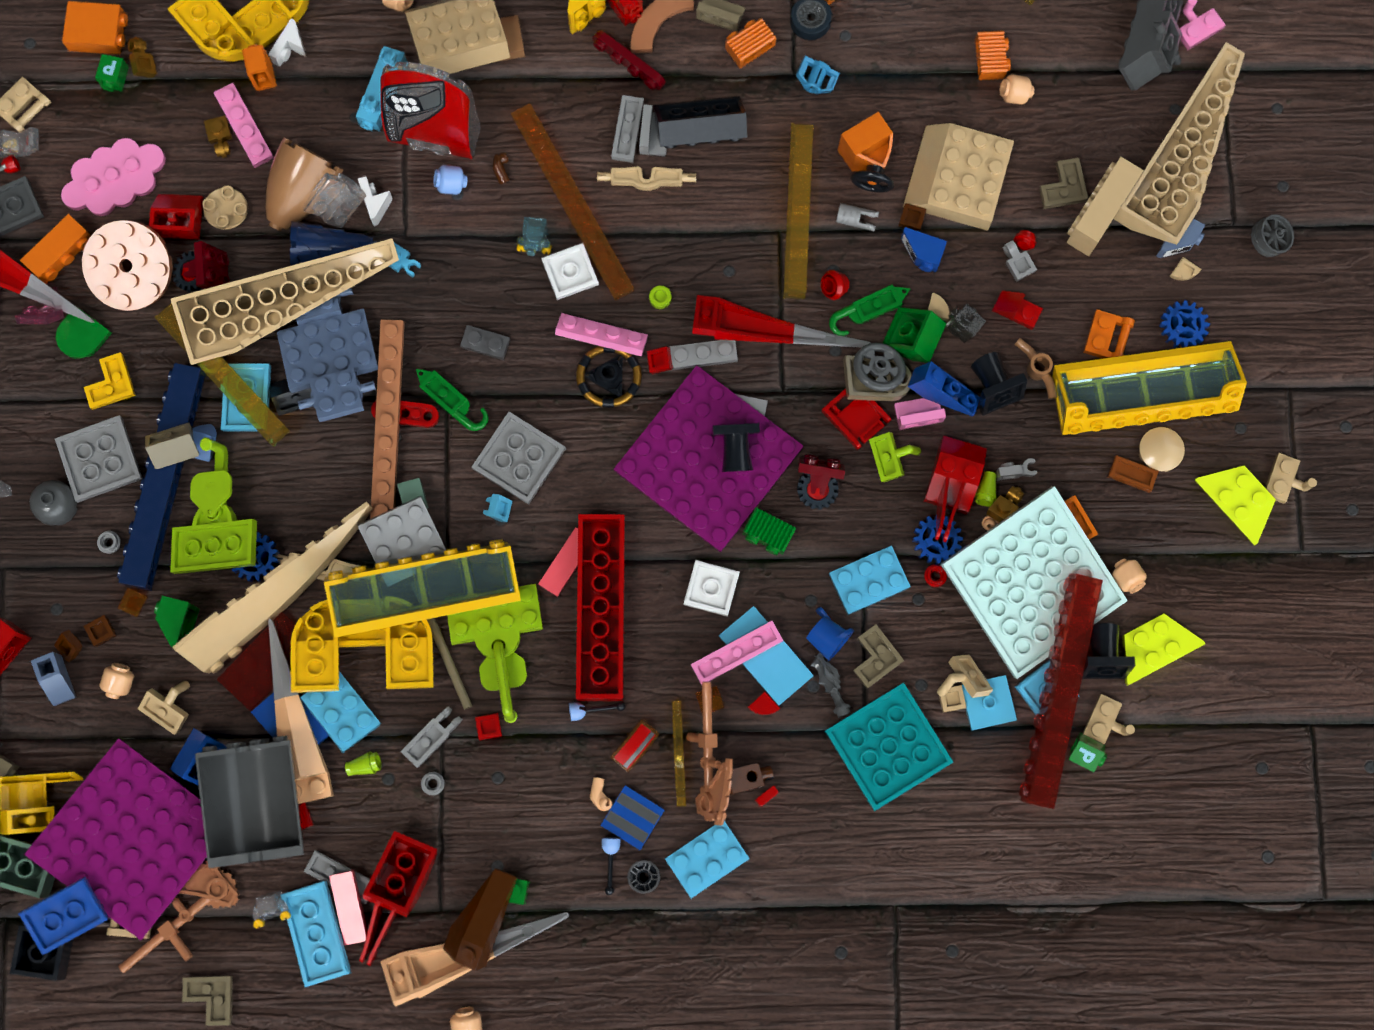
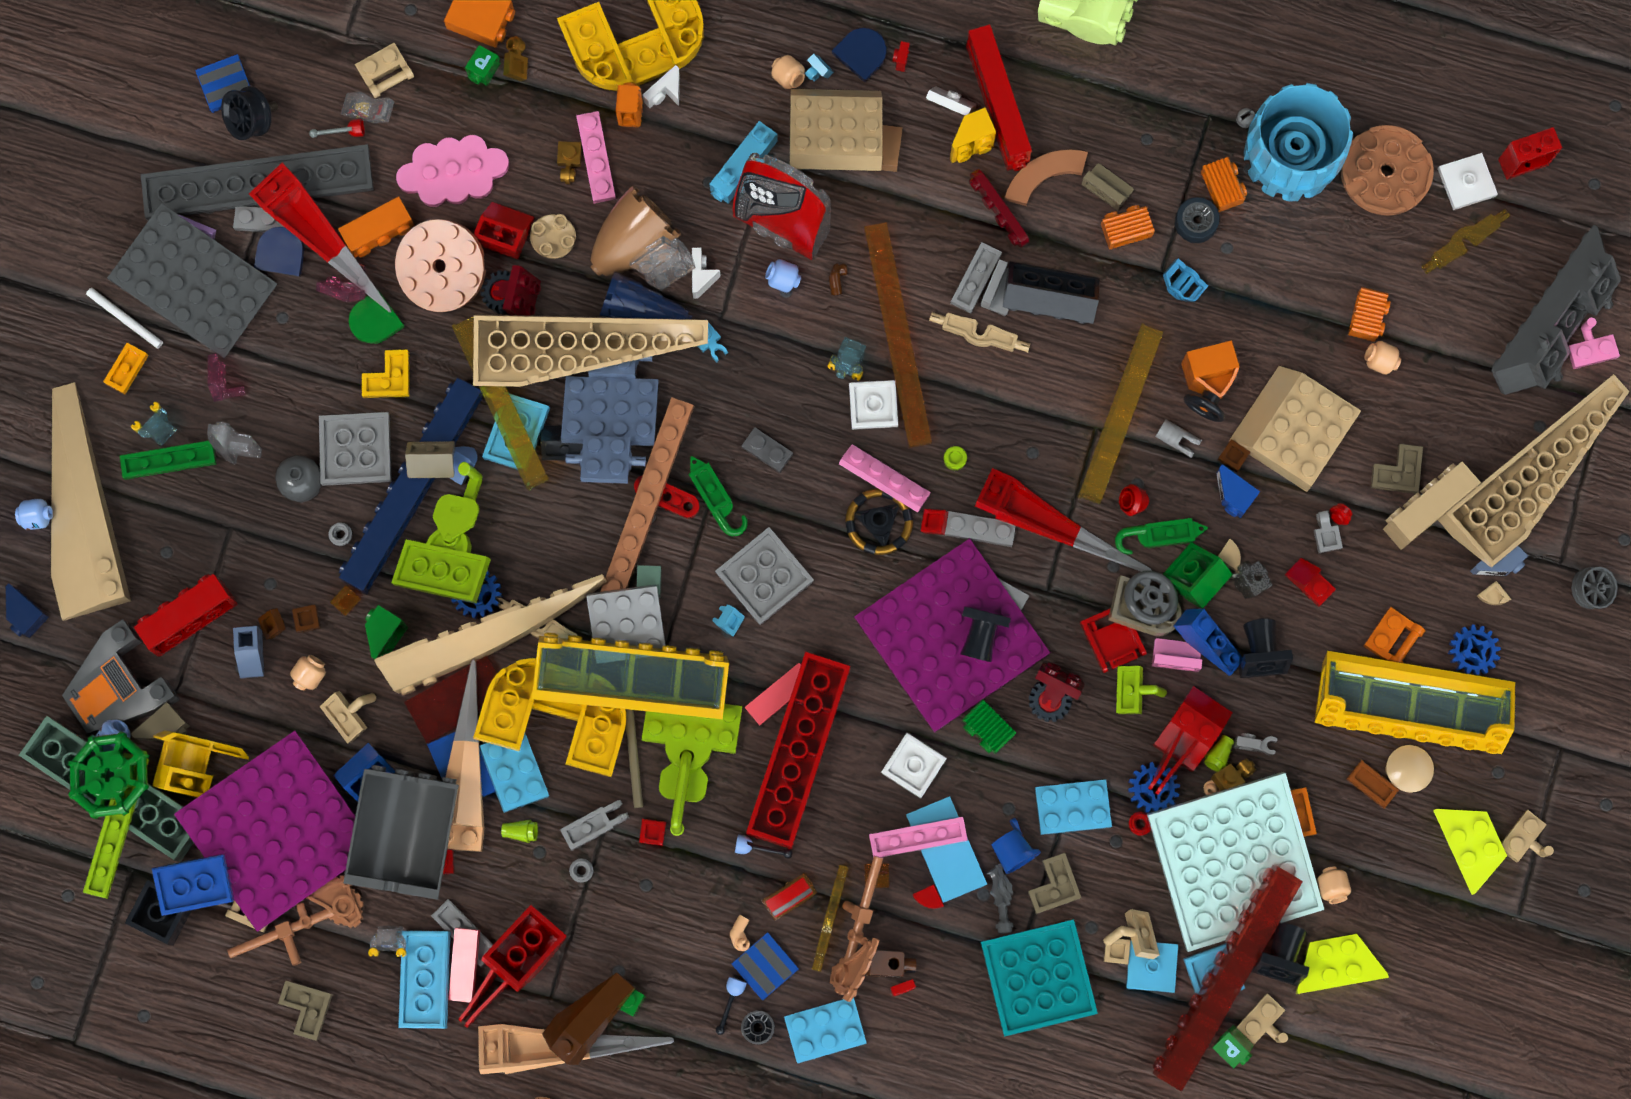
camera: 20 degrees right, 0 degrees up
(1033, 372) = (1315, 657): medium nougat piece -> none

